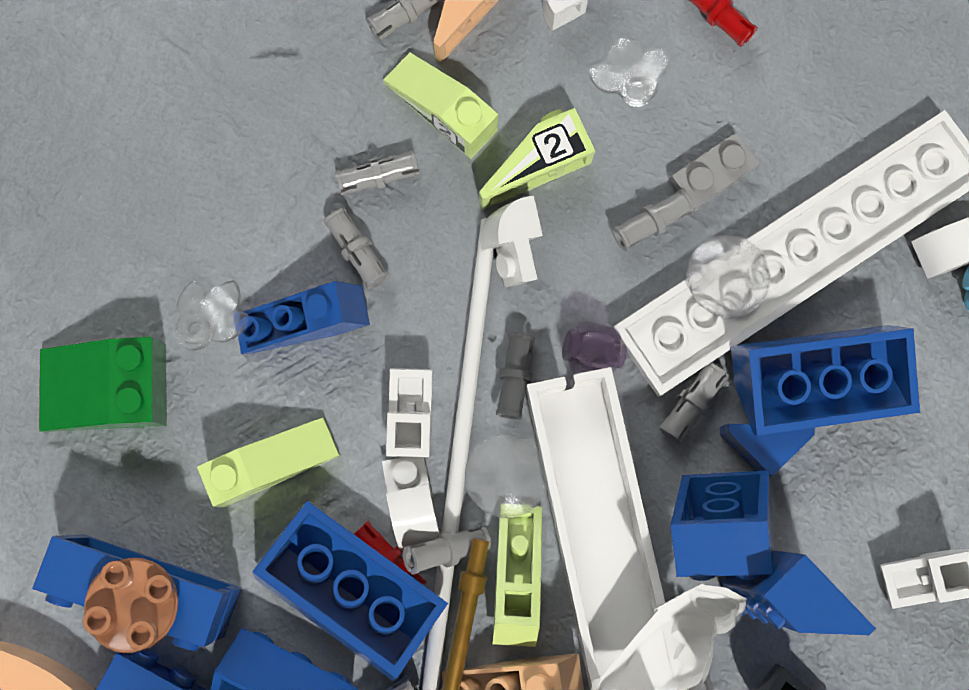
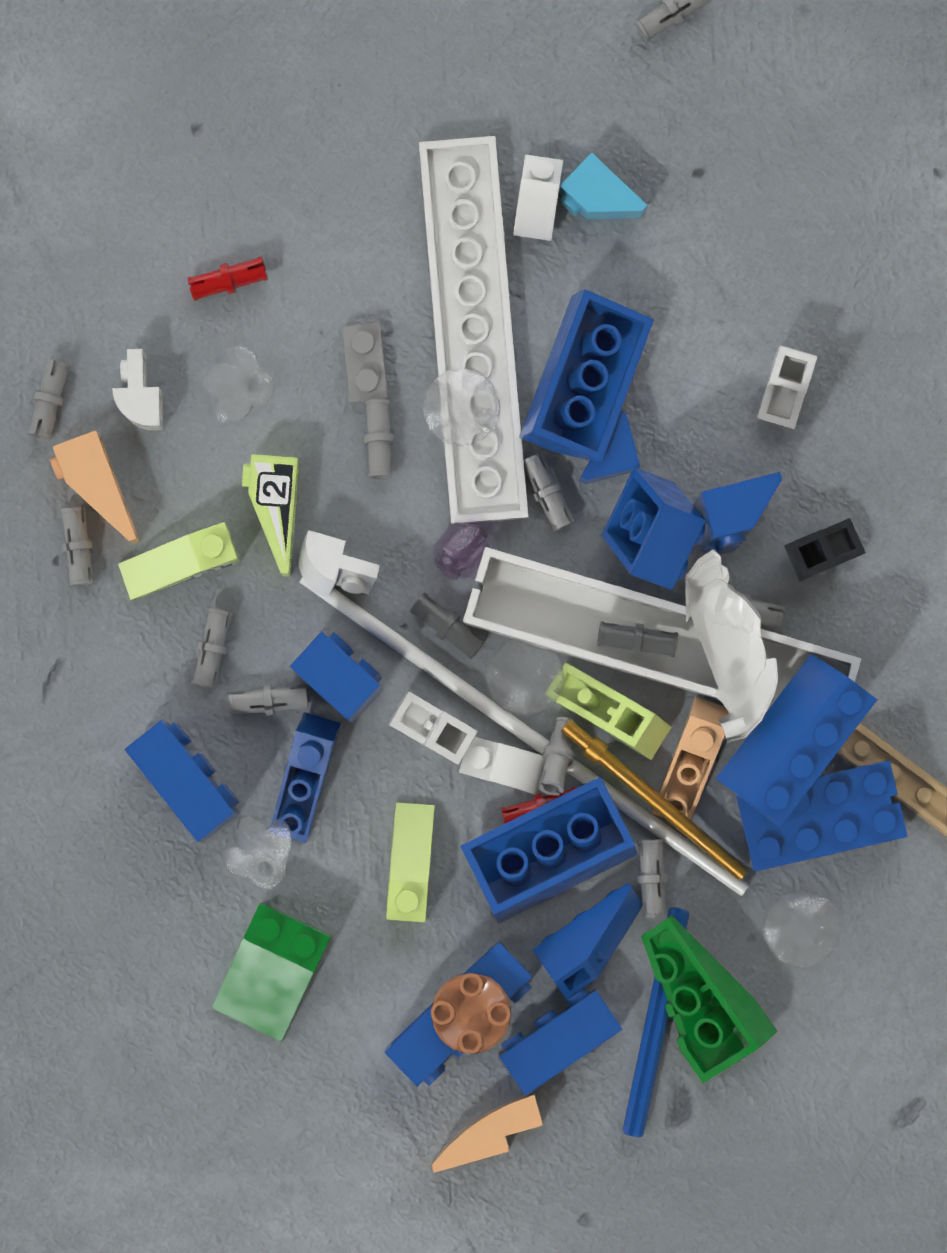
camera: 60 degrees left, 5 degrees up
(234, 204) = (183, 779): none -> blue brick
(406, 290) = (337, 676): none -> blue brick
(604, 567) = (637, 639): none -> dark grey pin

